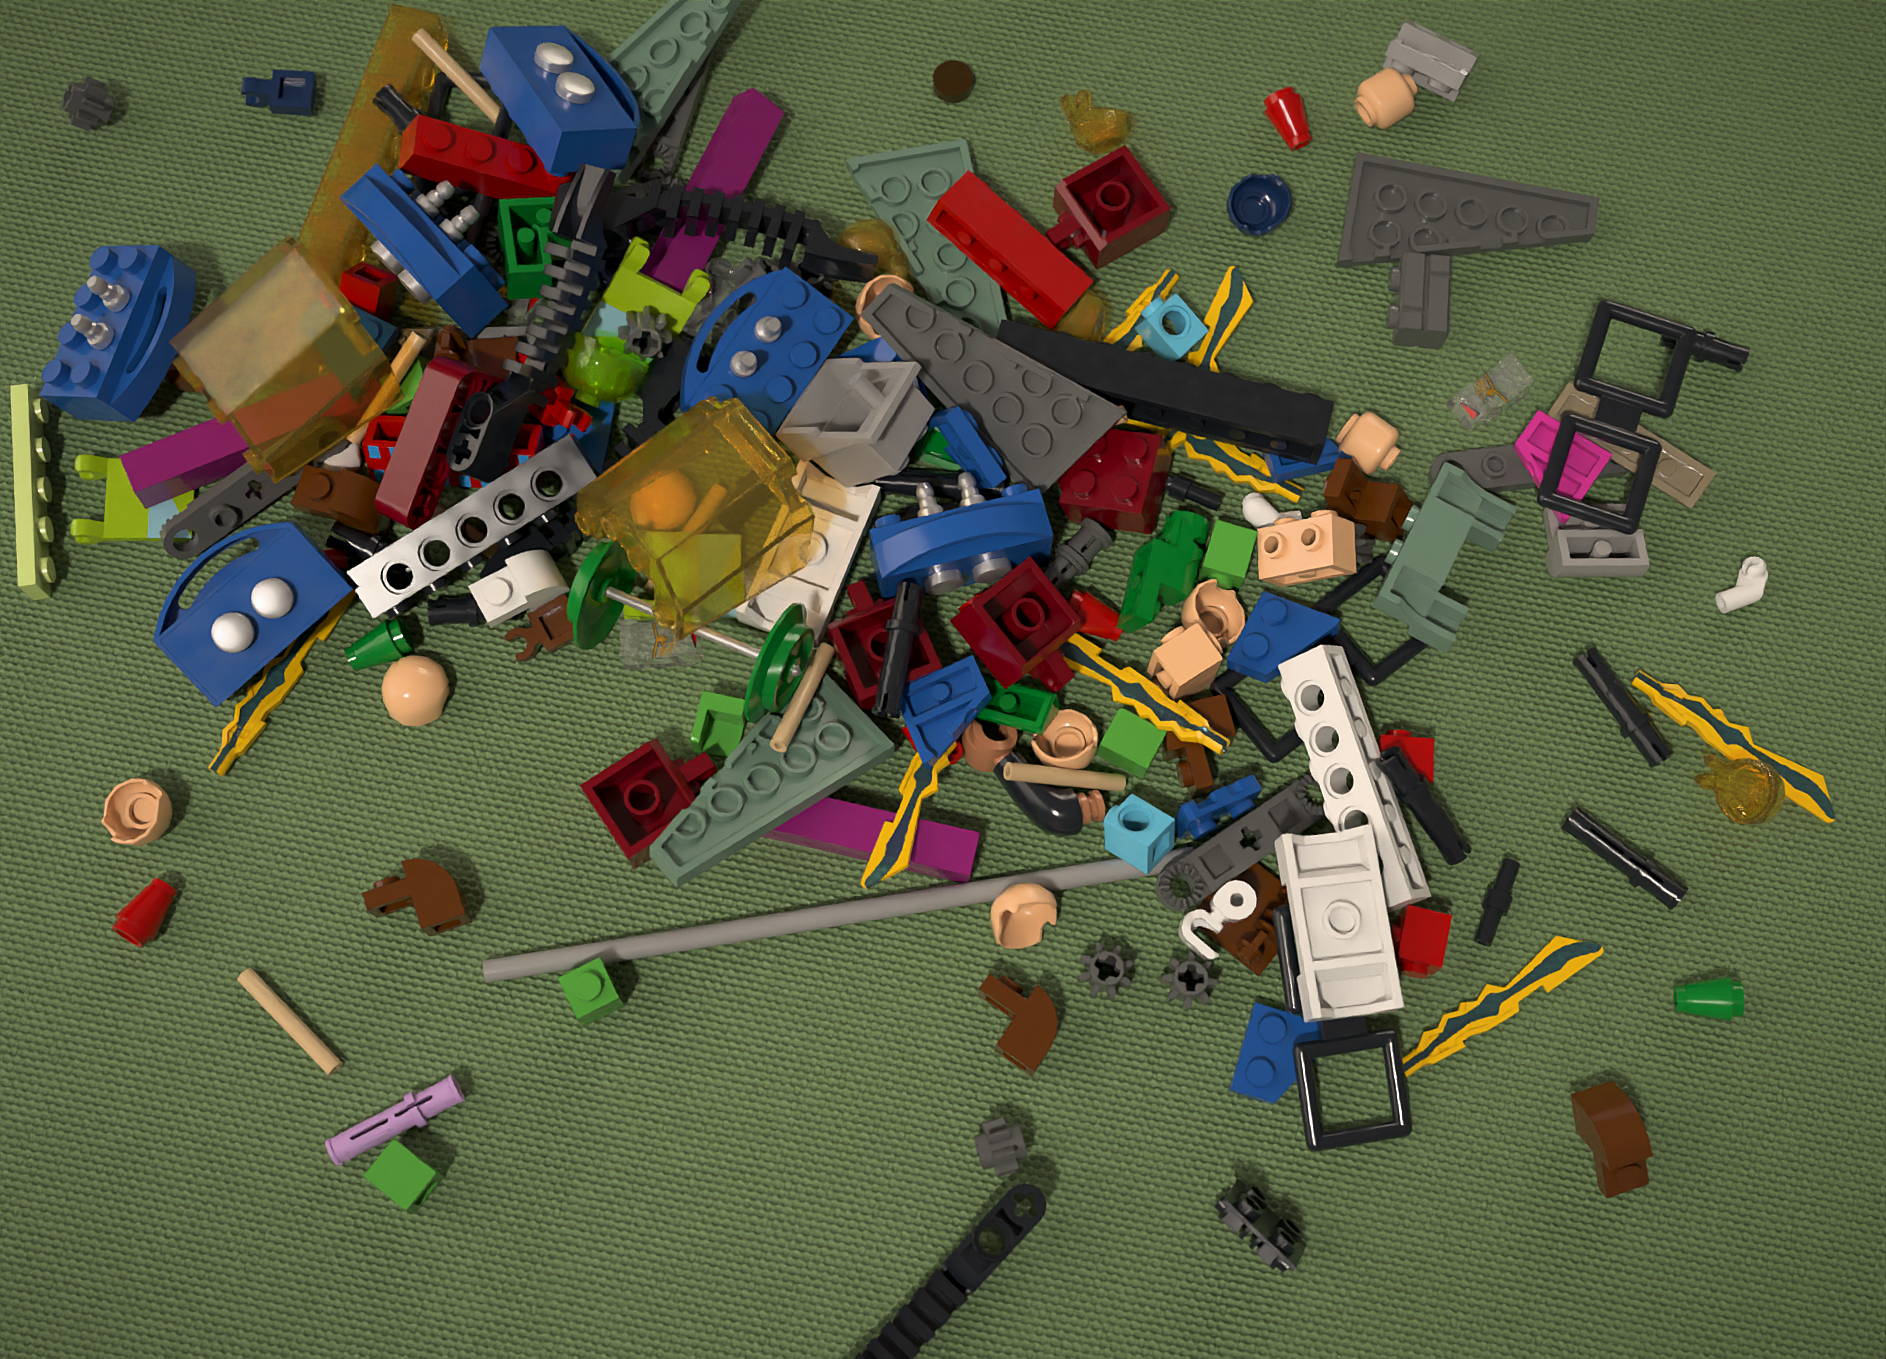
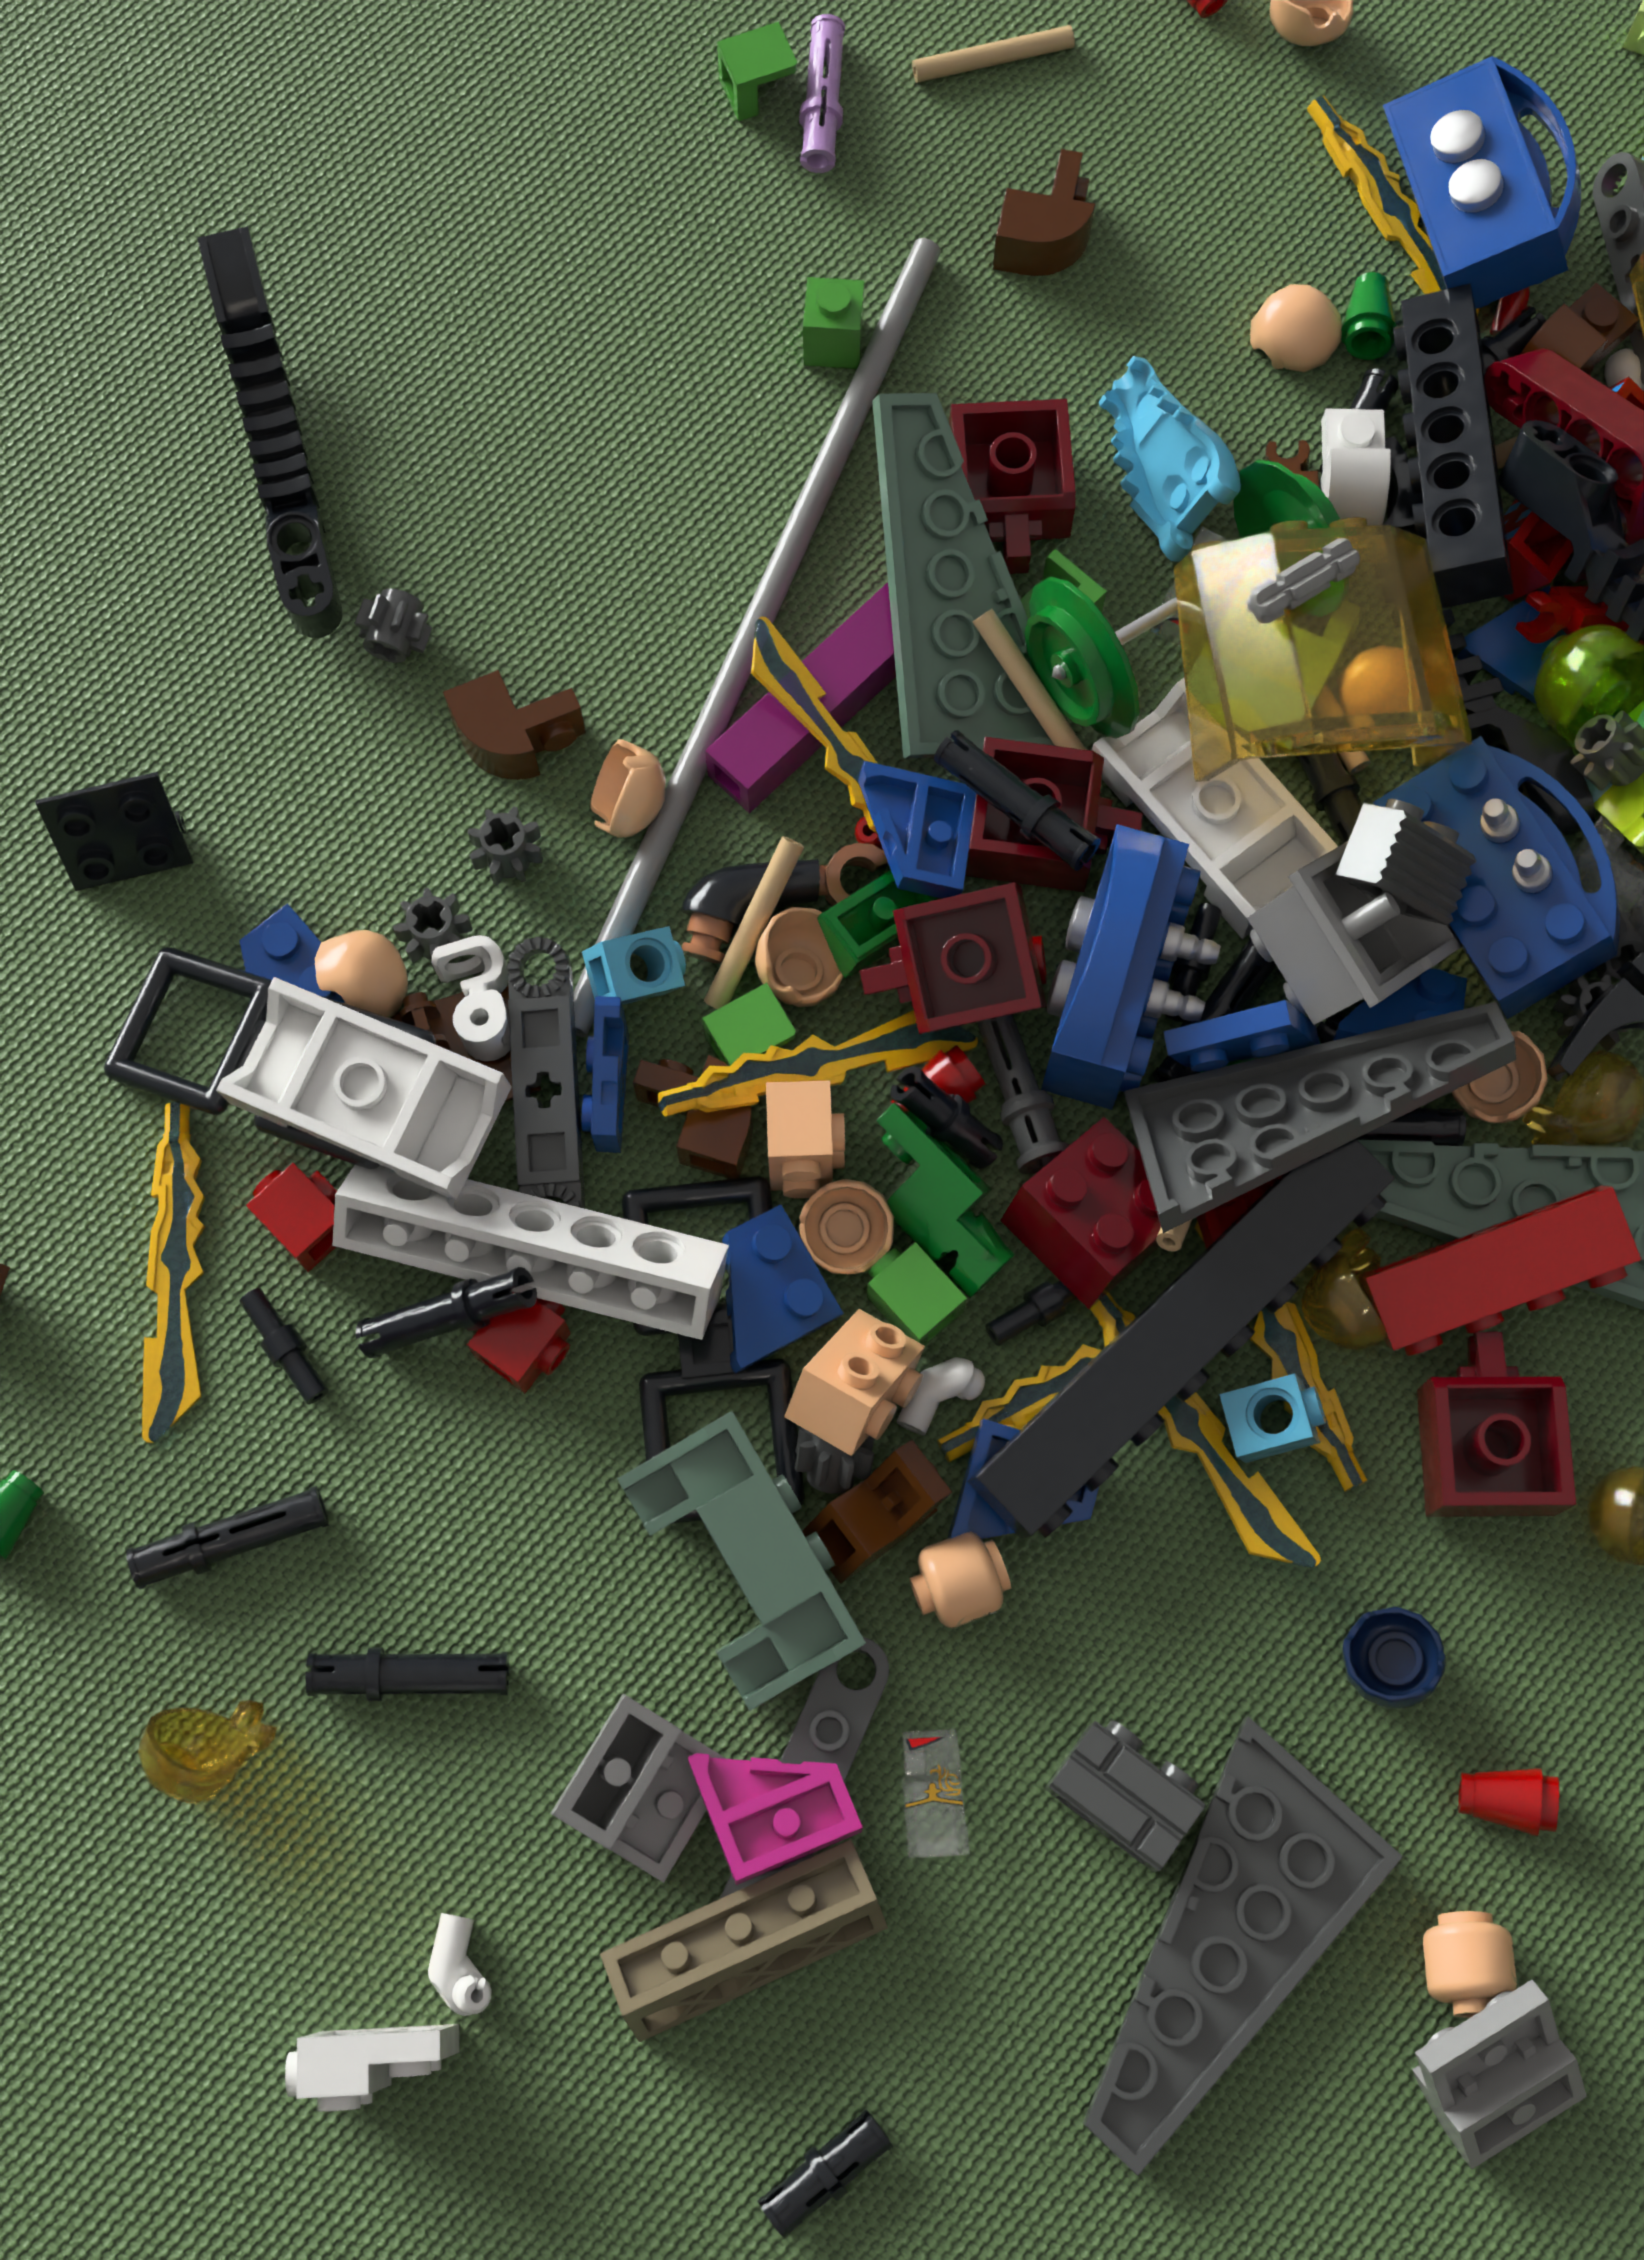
camera: 125 degrees right, 0 degrees up
(577, 708) = (1170, 458): none -> medium azure animal
(686, 517) = (1303, 580): none -> light grey axle
(814, 393) = (1408, 859): none -> dark grey brick
(1114, 593) = (946, 1117): none -> black pin
(1251, 1000) = (363, 971): none -> light nougat hair
(1617, 417) = (786, 1927): black bar -> none
(1735, 742) = (273, 1799): yellow sword -> none
(1822, 592) = (350, 2065): none -> white plate

